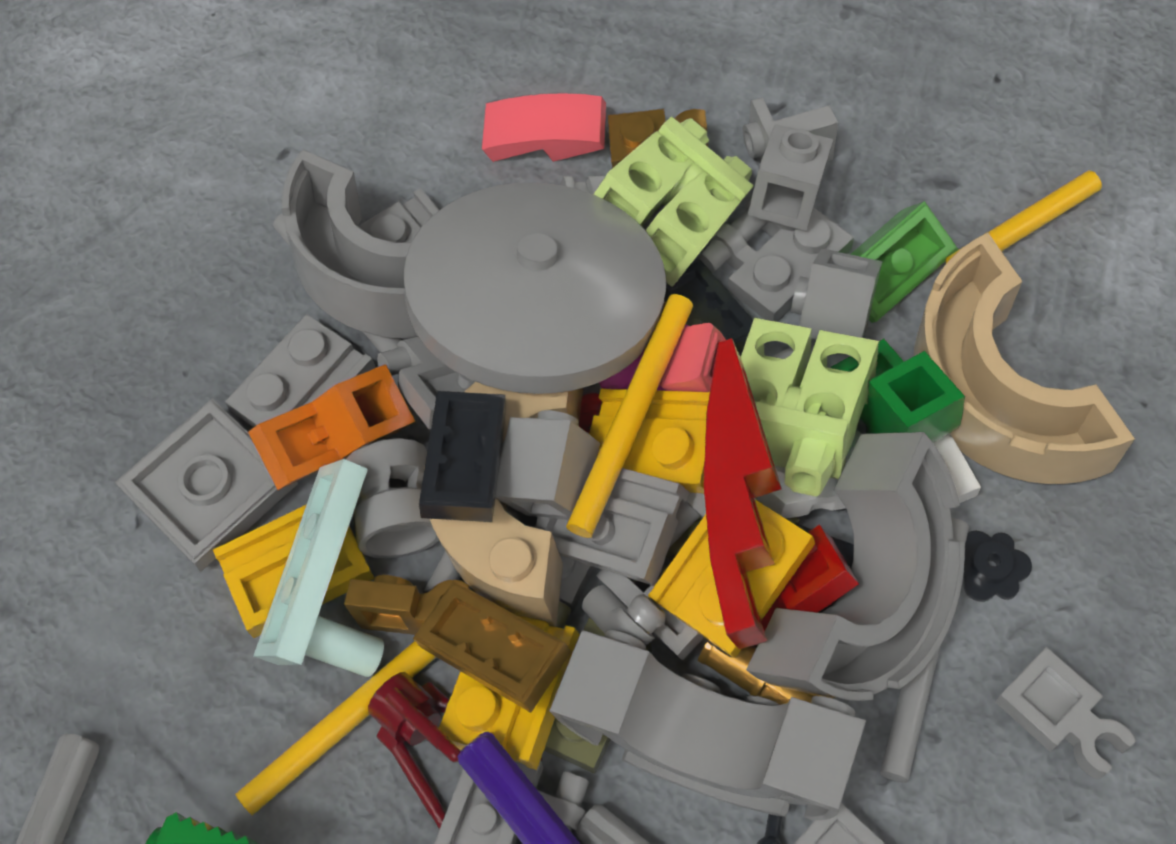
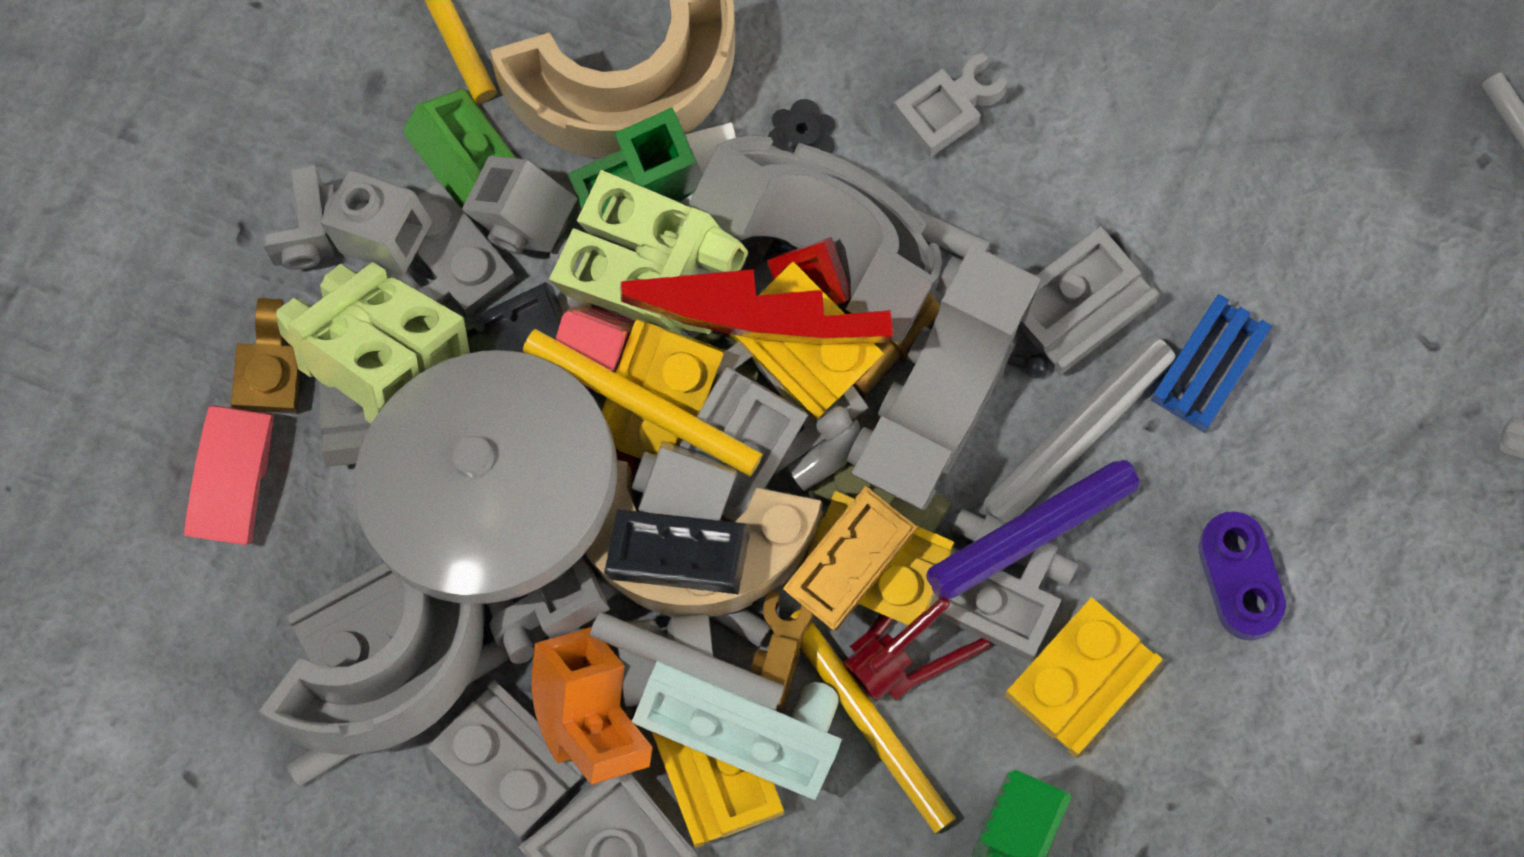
camera: 90 degrees left, 10 degrees up
(371, 502) = (686, 660): none -> light grey bar

